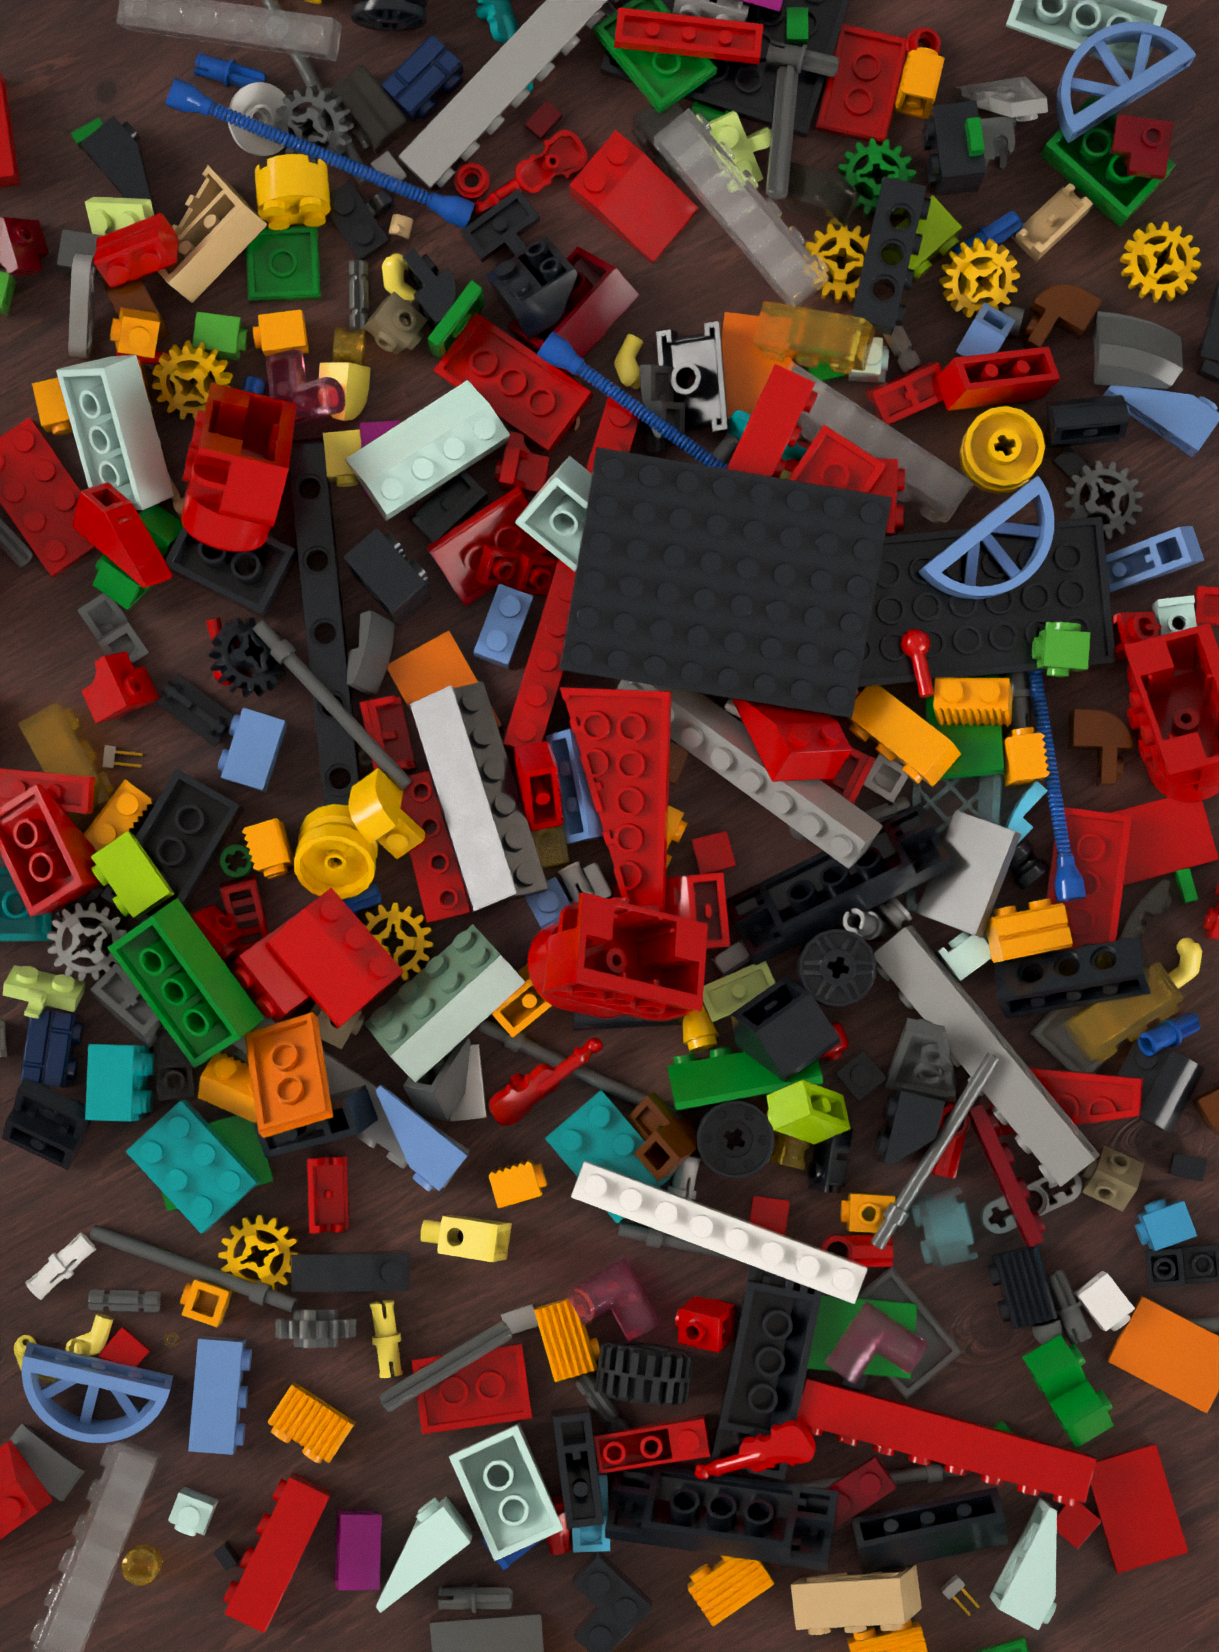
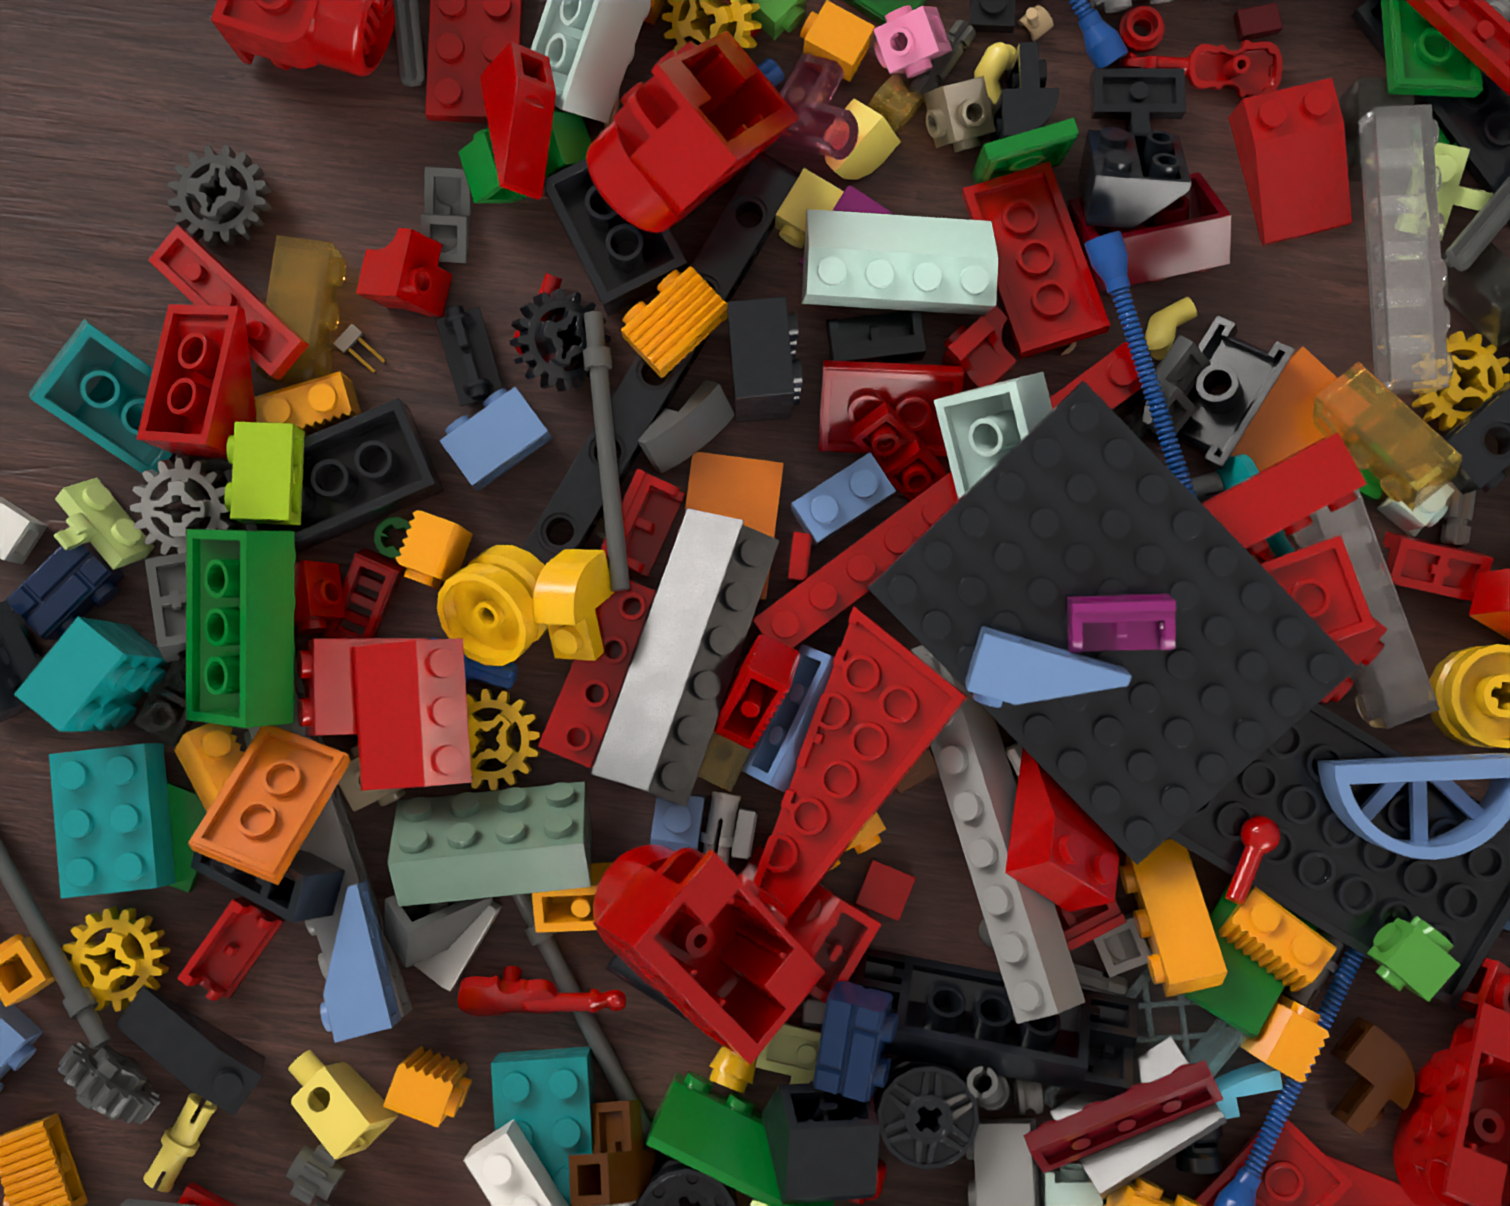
camera: 35 degrees right, 0 degrees up
(314, 591) = (674, 320): none -> light orange brick
(330, 300) = (911, 40): none -> bright pink brick
(486, 1291) = (314, 1174): none -> dark grey gear
(503, 683) = (799, 557): none -> red tile
(691, 648) = (1030, 671): none -> medium blue slope
(727, 577) = (1121, 622): none -> magenta hinge
(757, 953) = (854, 1041): none -> dark blue brick
(955, 878) = (1123, 1116): none -> dark red plate

